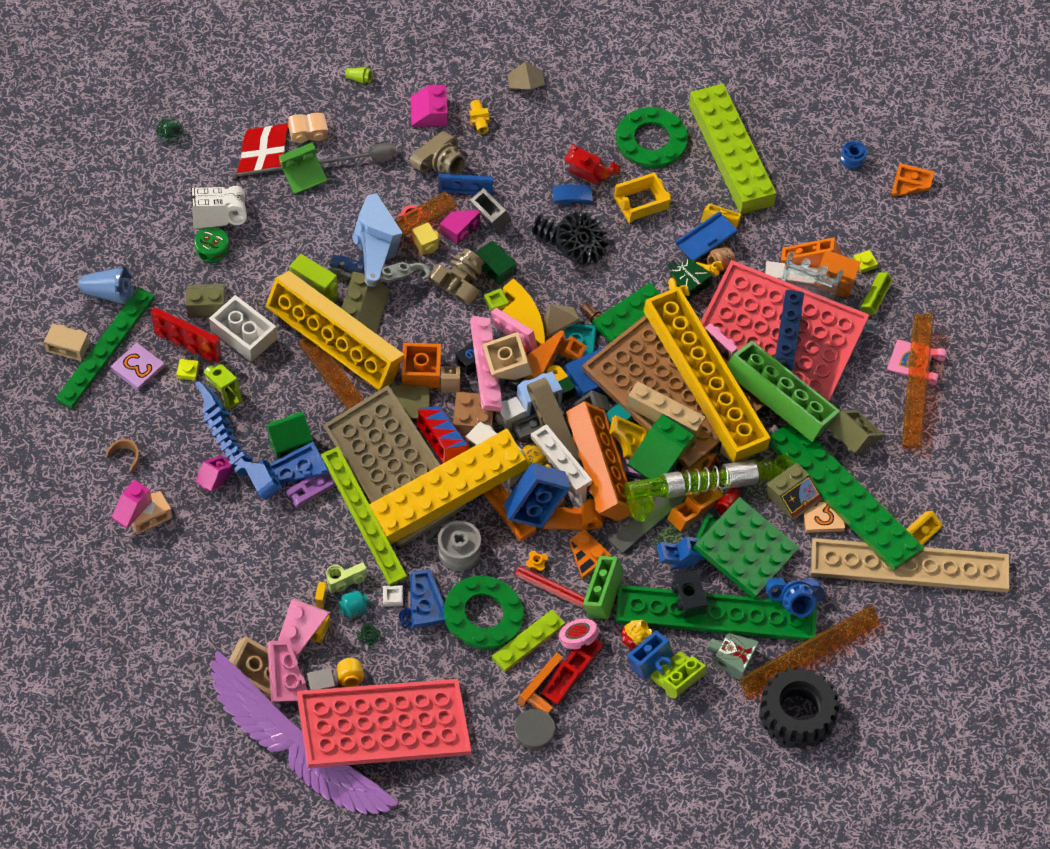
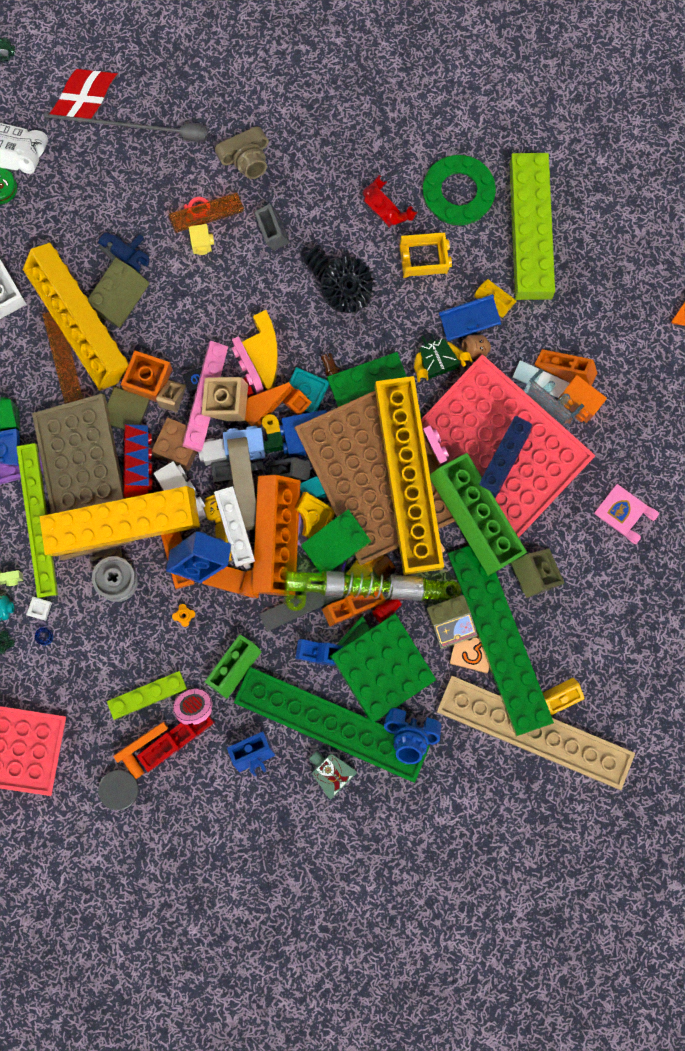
camera: 20 degrees right, 20 degrees up
(302, 168) = (109, 129): bright green bracket -> none
(307, 127) = (131, 84): light nougat brick -> none
(316, 276) = (76, 256): lime brick -> none
(359, 74) = (202, 39): lime cone -> none
(379, 240) = (151, 231): light blue slope -> none
(425, 600) = (65, 627): blue wing -> none
(429, 107) = (256, 95): dark pink slope -> none
(456, 281) = (213, 293): dark tan beam -> none
(459, 225) = (237, 233): dark pink slope -> none
(464, 184) = (259, 190): blue tile -> none
(476, 636) = (94, 634): green plate -> none
(479, 117) = (299, 119): yellow axle -> none
(496, 300) = (244, 325): lime plate -> none
(497, 262) = (258, 285): dark green brick -> none
(525, 77) = (360, 89): dark tan slope -> none
(550, 586) = (187, 645): axle -> none
(558, 319) = (295, 365): dark tan slope -> none
(571, 193) = (359, 230): blue slope -> none
(586, 552) = (234, 621): orange wing -> none
(635, 633) = (246, 724): yellow piece -> none
(654, 404) = (357, 504): tan brick -> none
(680, 675) = (274, 781): lime brick -> none
(689, 583) = (313, 713): black brick -> none
(792, 730) = (396, 863): black tyre -> none
(811, 650) = (404, 793): clear orange plate -> none
(853, 155) = (655, 262): blue wheel -> none
(867, 261) = (617, 388): neon yellow plate -> none
(876, 293) = (614, 429): lime piece -> none
(917, 381) = (618, 538): clear orange plate -> none

